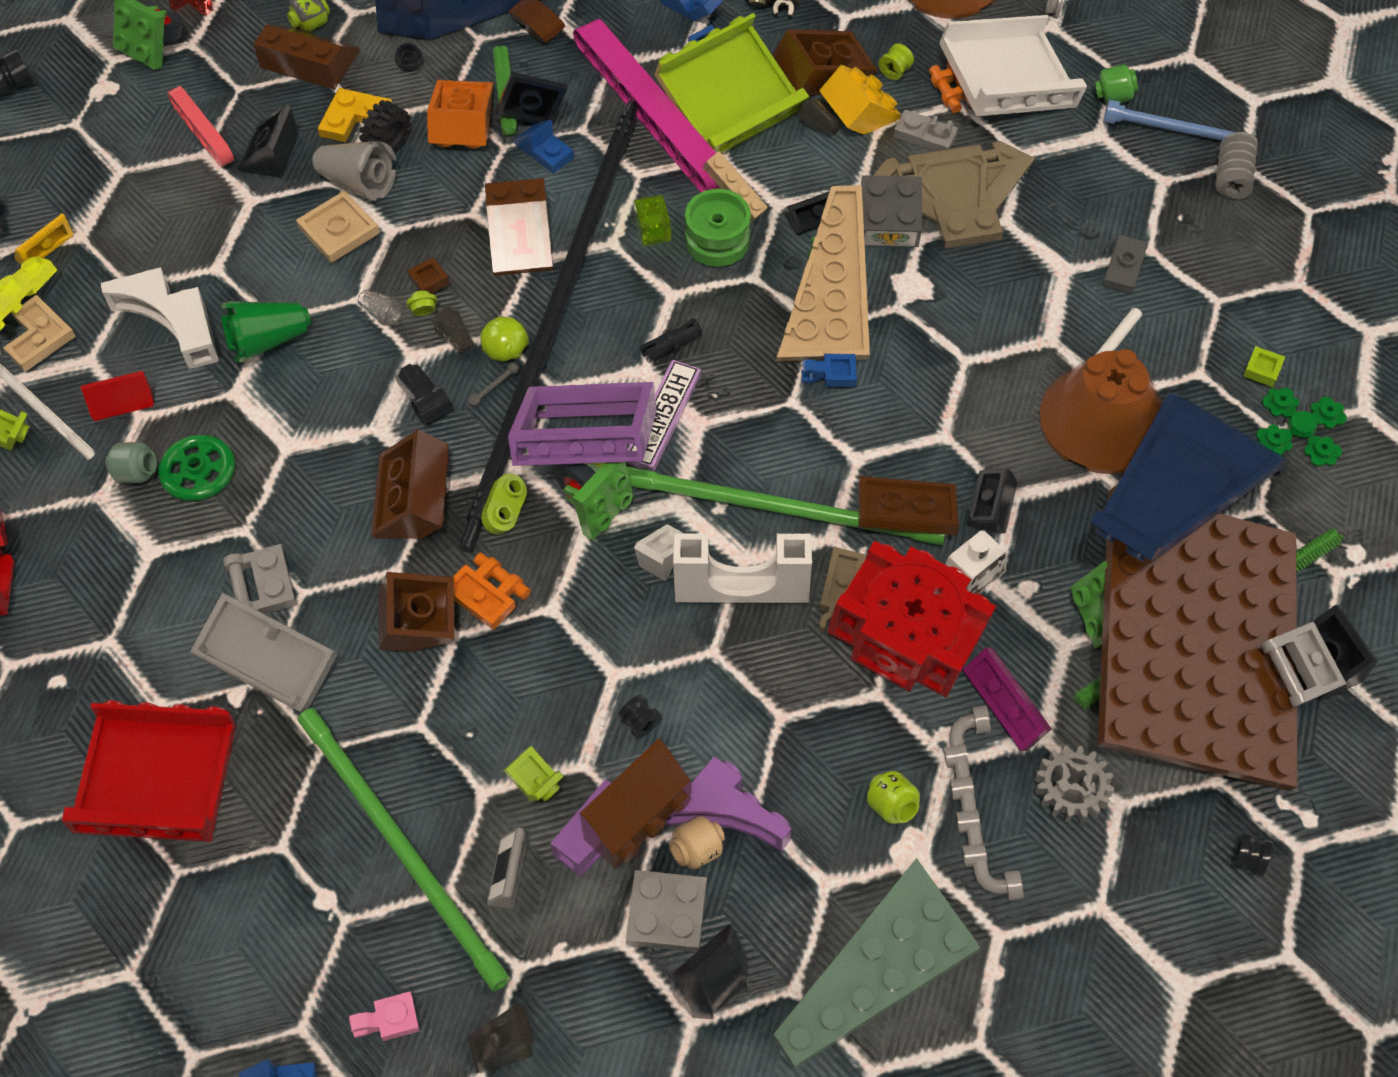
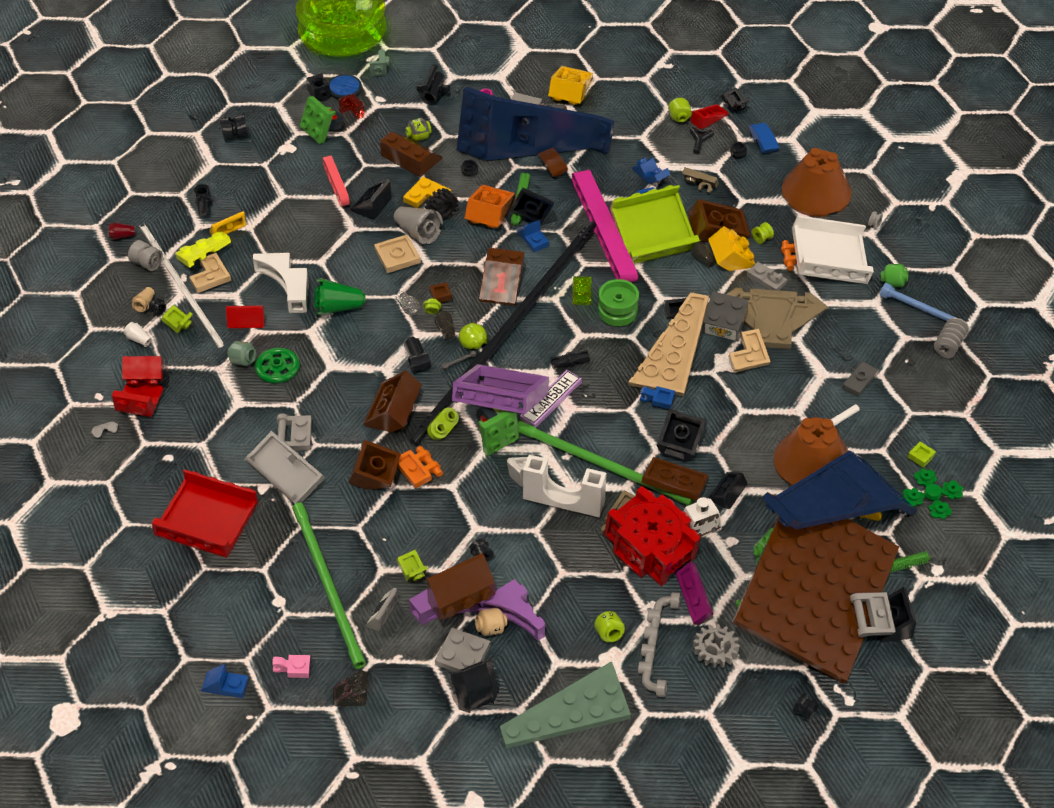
camera: 15 degrees right, 10 degrees down
(729, 179) = (634, 276): tan piece -> none
(891, 429) = (681, 435): none -> black slope
(954, 261) = (753, 356): none -> tan plate

